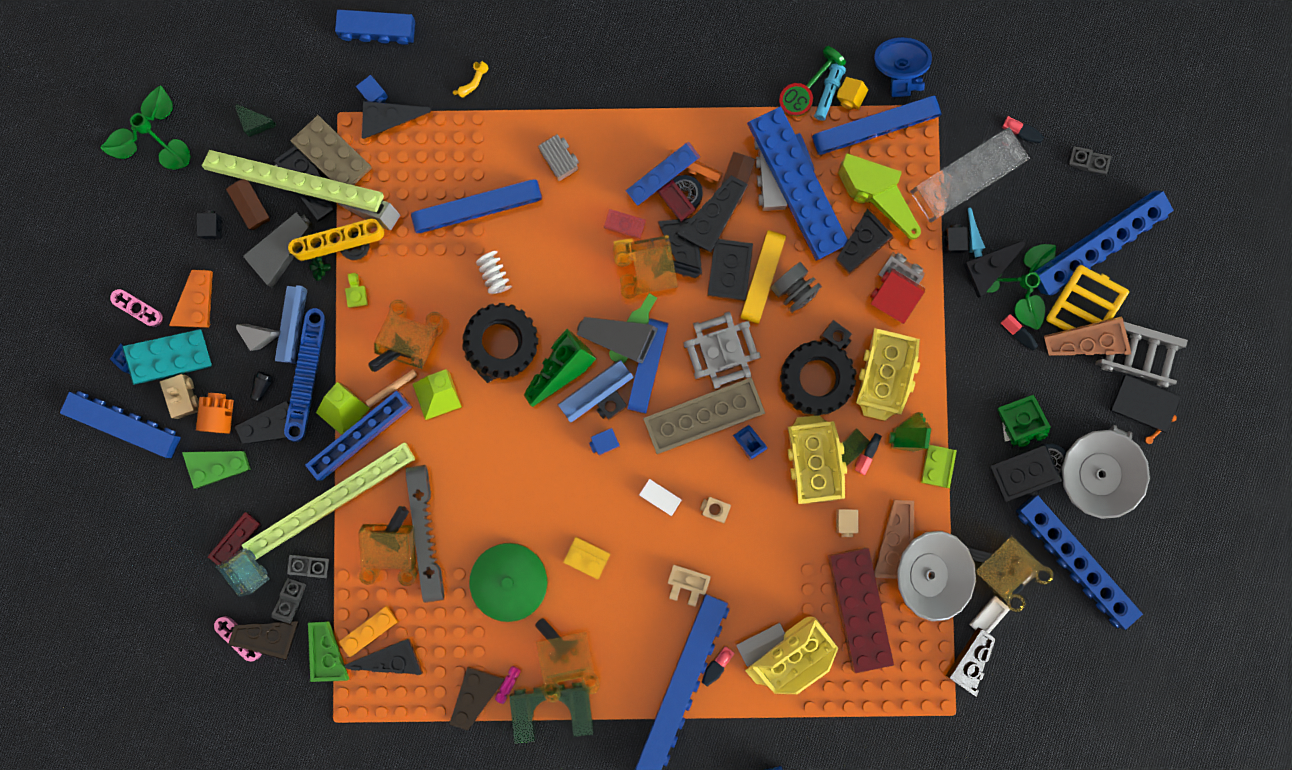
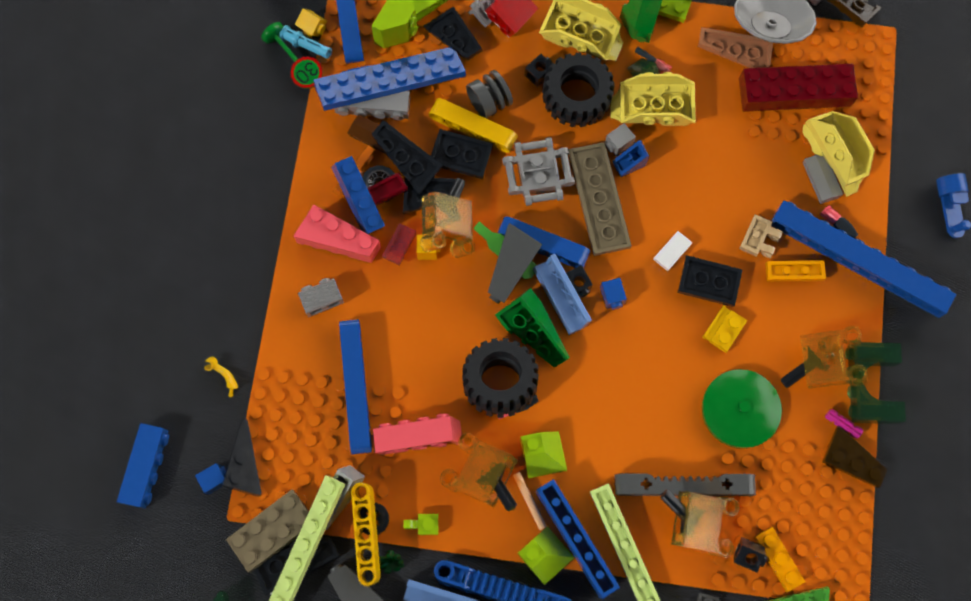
camera: 85 degrees left, 10 degrees down
(366, 601) = (745, 547): none -> black brick
(396, 658) = (809, 534): black wing -> none
(435, 273) = (417, 434): none -> coral wedge
(492, 273) = (427, 377): white piece -> none
(623, 158) = (335, 235): none -> coral wedge
(633, 537) = (710, 281): none -> black plate
(657, 624) = (795, 270): none -> light orange plate
(724, 509) = (695, 194): tan brick -> none
(770, 428) = (619, 139): none -> light grey brick
(846, 522) = (715, 87): tan brick -> none

